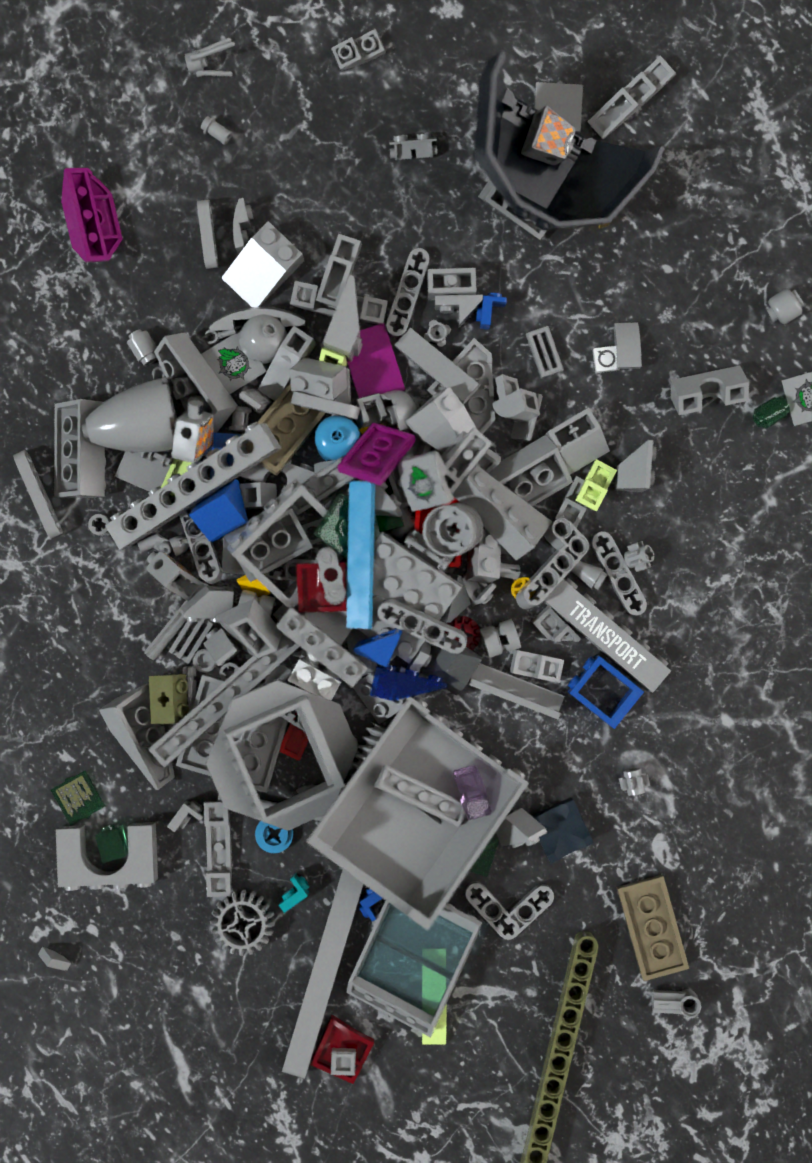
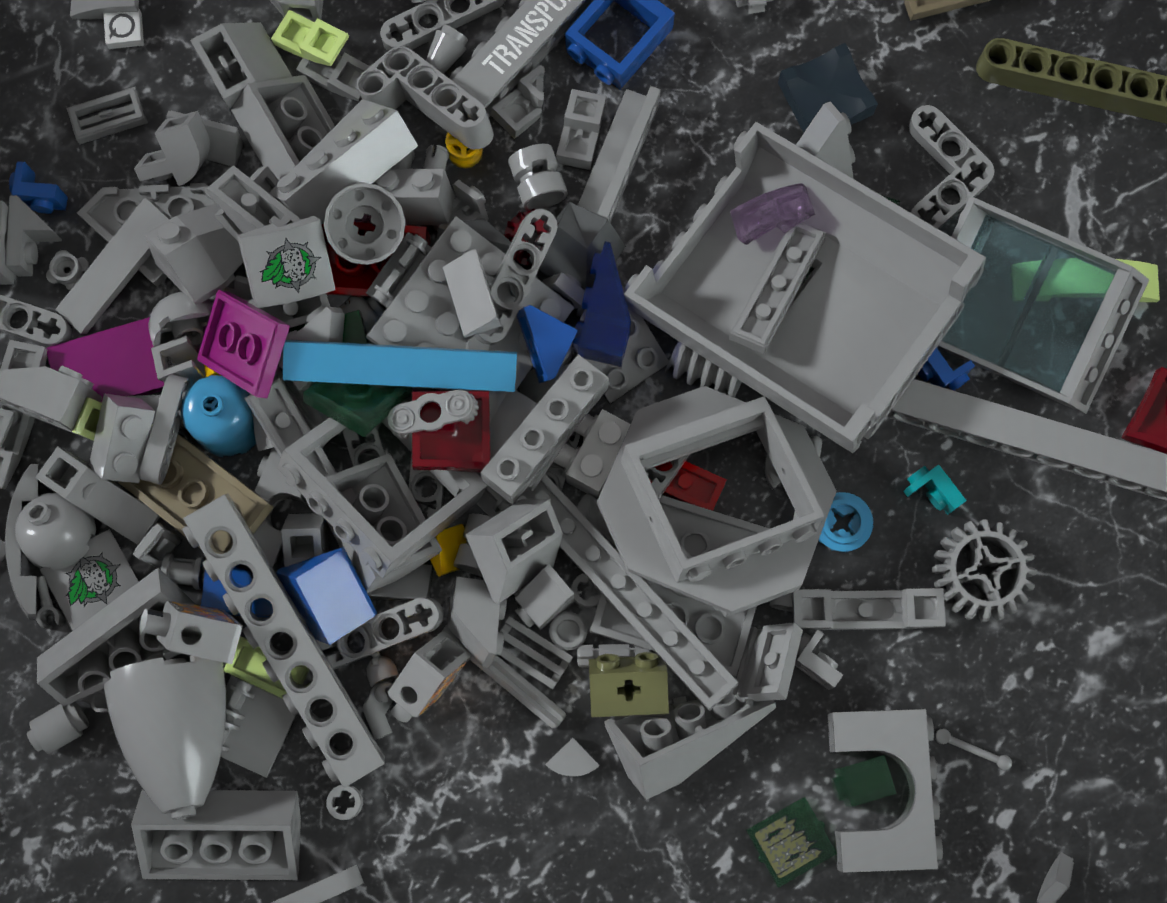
camera: 85 degrees left, 10 degrees down
(125, 664) = (572, 760): none -> light grey tile
(141, 893) = (943, 736): none -> light grey hinge
(182, 785) = (768, 662): none -> light grey plate
(406, 599) = (471, 294): none -> light grey slope

